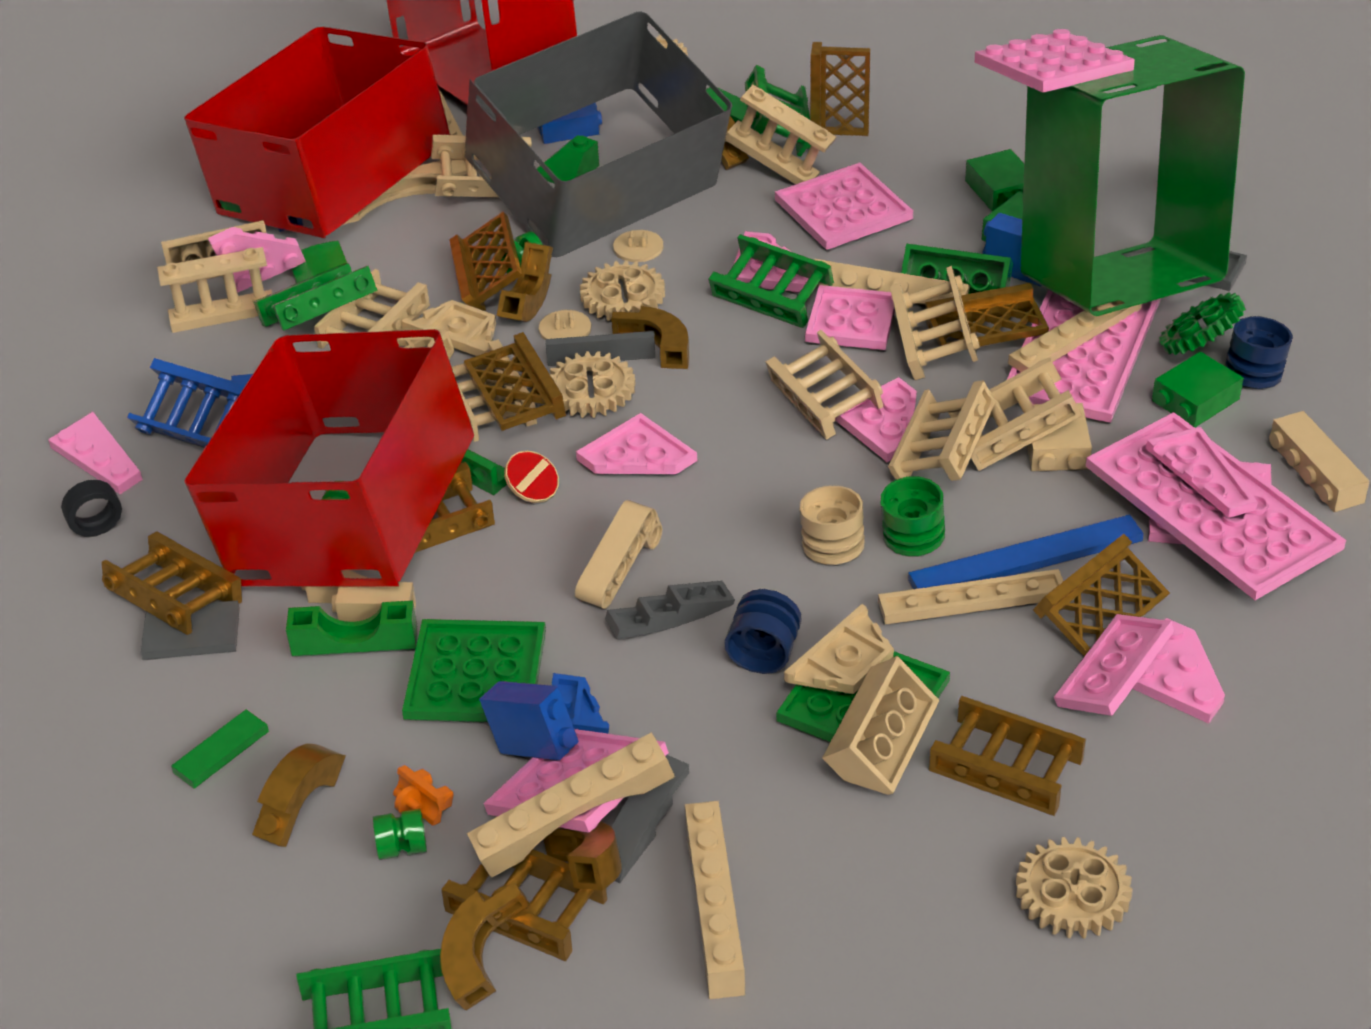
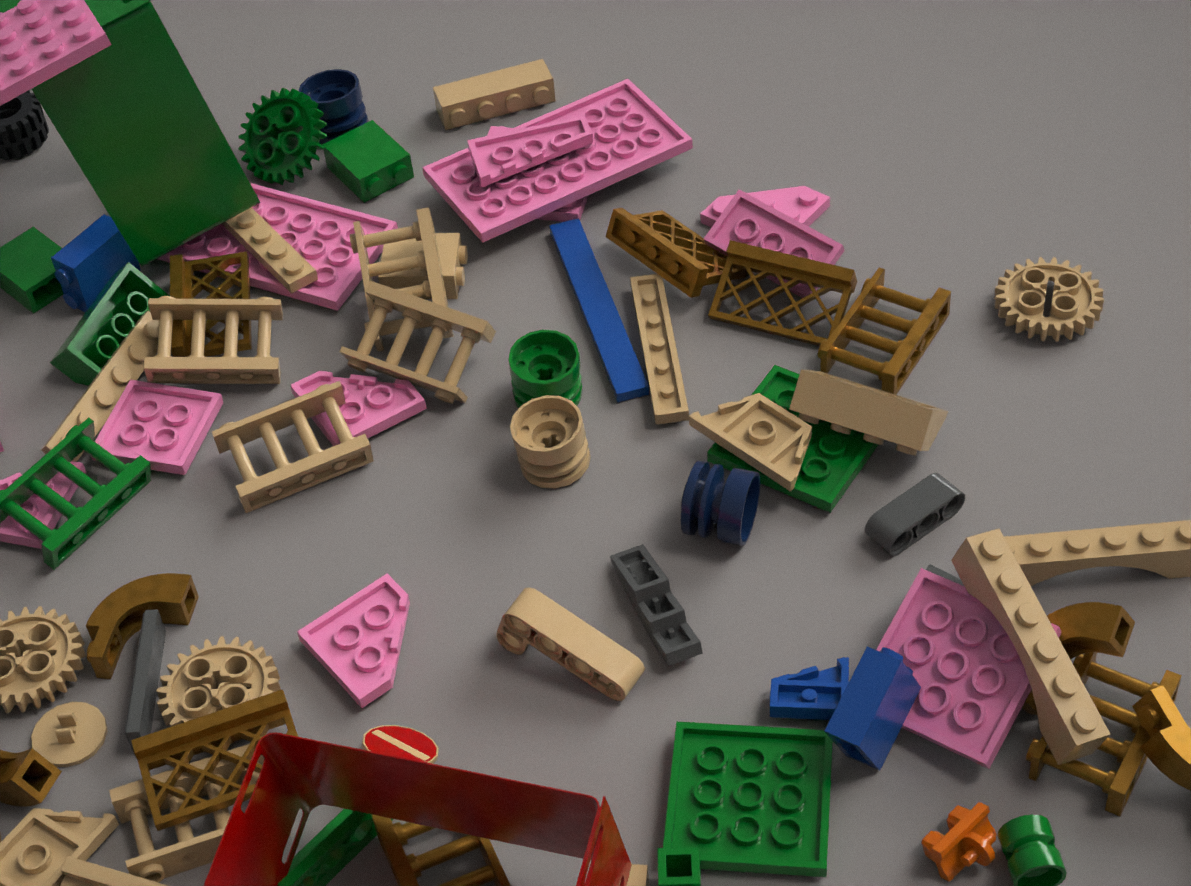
camera: 85 degrees left, 5 degrees up
(770, 773) = (914, 514): none -> dark grey beam
(1067, 673) = (787, 267): none -> pearl gold fence

